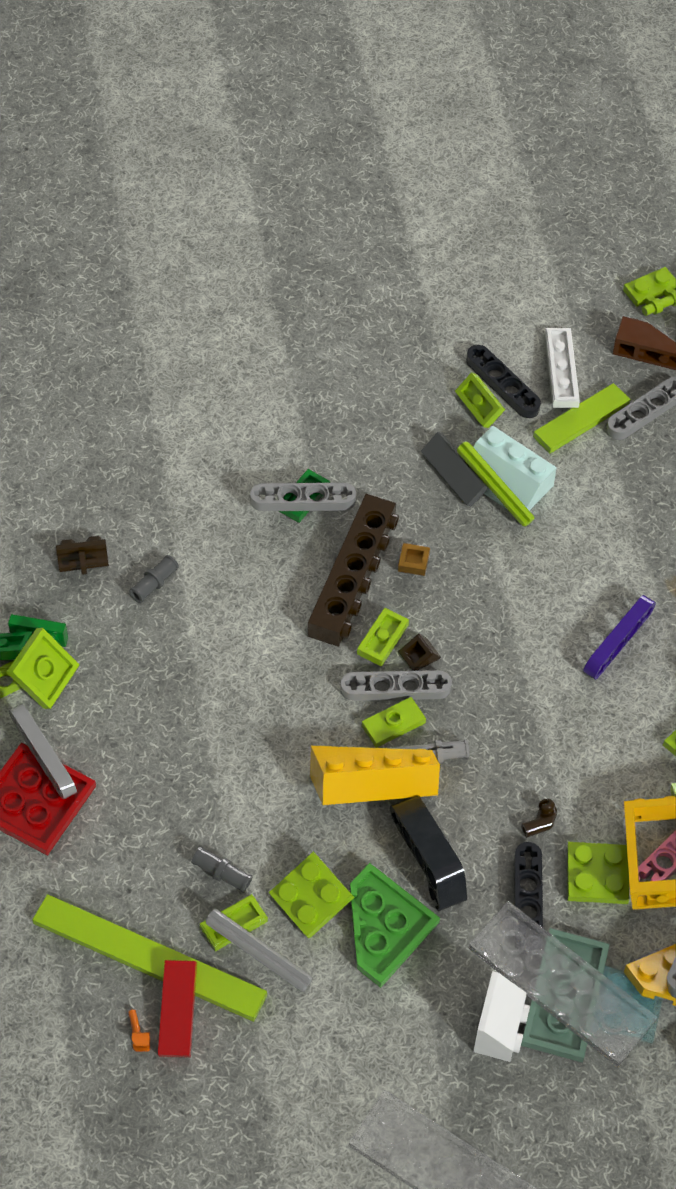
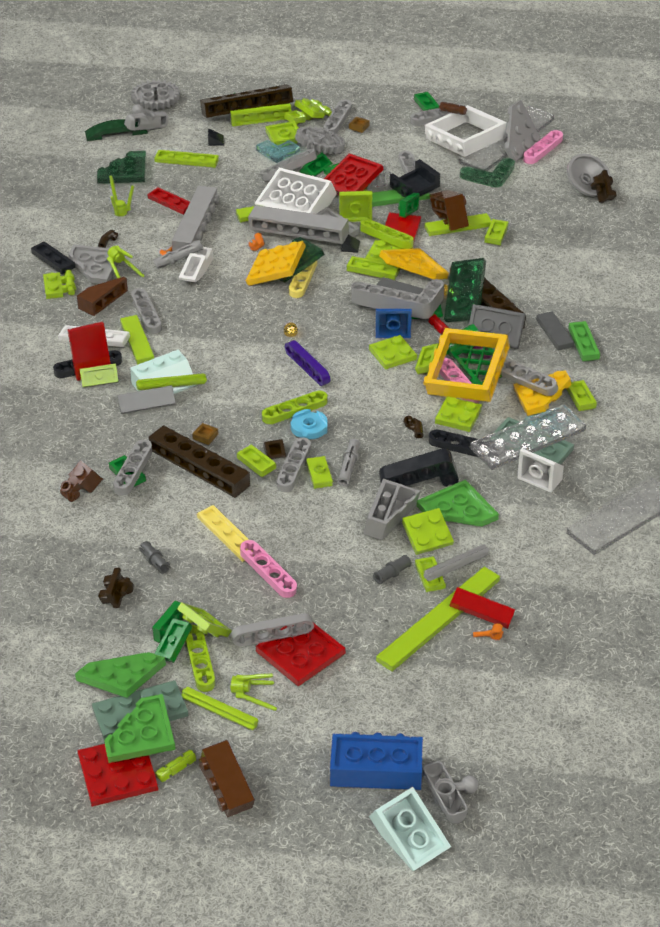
camera: 70 degrees left, 15 degrees down
(168, 713) = (271, 566): none -> bright pink beam
(231, 648) = (223, 529): none -> light yellow tile
(263, 449) = (80, 478): none -> reddish brown brick
(332, 828) = (389, 508): none -> light grey wedge
(372, 773) = (357, 484): yellow wedge -> none
(486, 693) = (317, 424): none -> medium azure plate
(501, 364) = (88, 347): none -> red tile
(522, 648) = (313, 400): none -> lime beam

